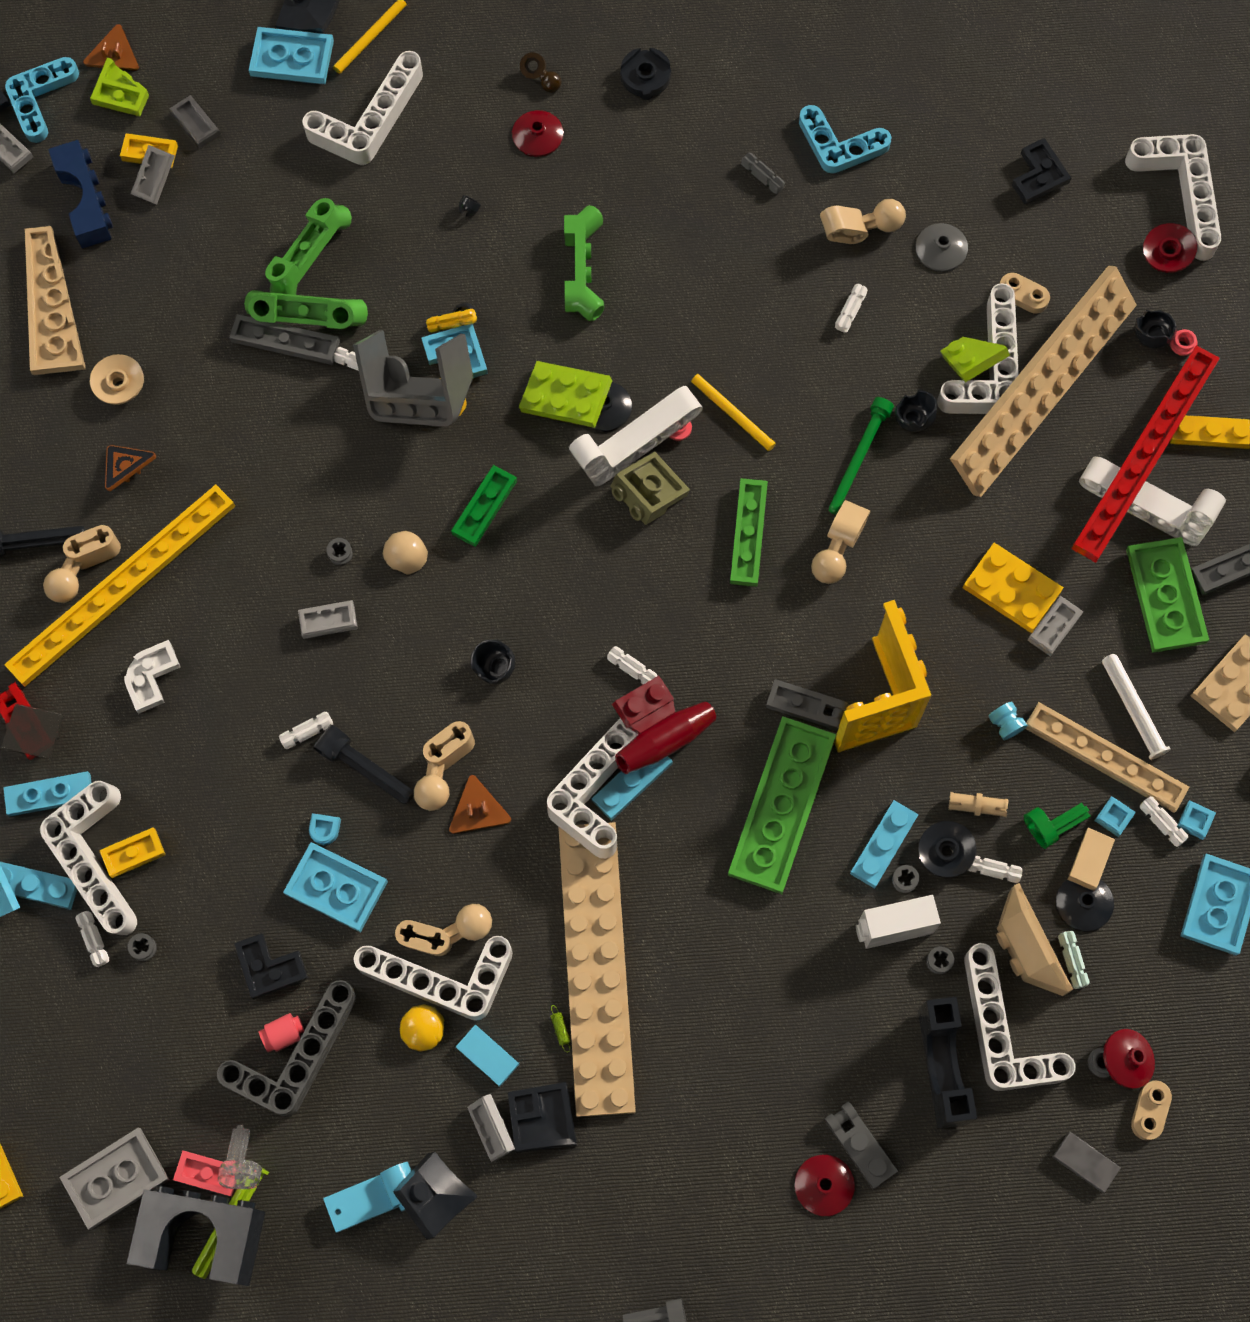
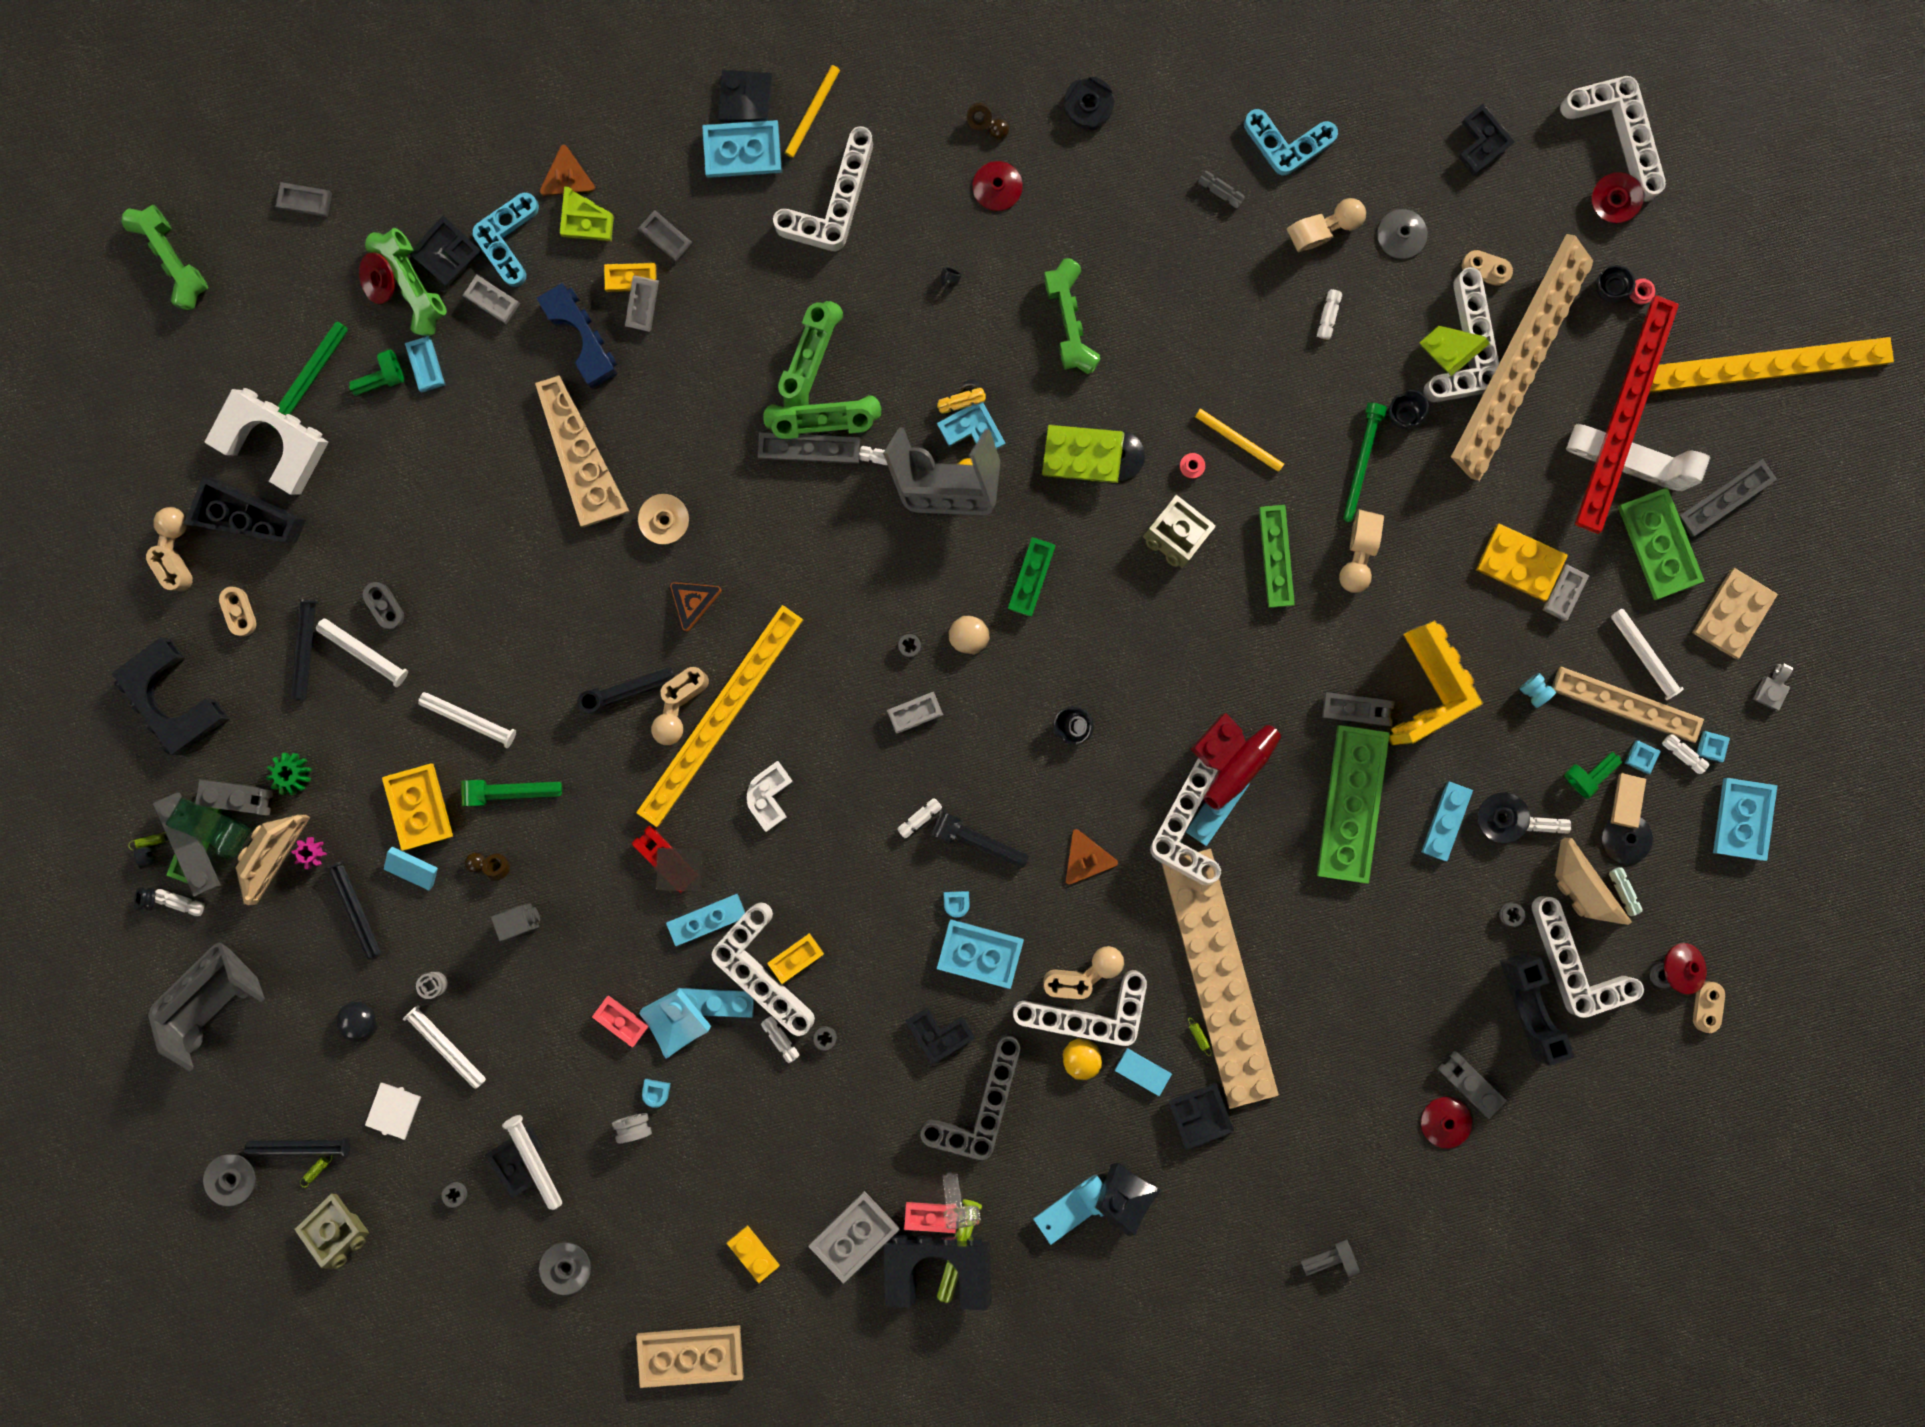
camera: 15 degrees left, 15 degrees up
(281, 1033) = (965, 1089): coral brick -> none
(431, 790) = (1045, 853): tan beam -> none
(490, 1127) = (1160, 1133): light grey plate -> none
(630, 665) = (1196, 703): white axle -> none
(636, 438) = (1161, 485): white beam -> none
(897, 875) = (1477, 852): dark grey bush -> none
(898, 922) = (1474, 893): white brick -> none
(978, 804) = (1523, 771): tan pin -> none
(1086, 1162) = (1661, 1061): flat silver tile -> none

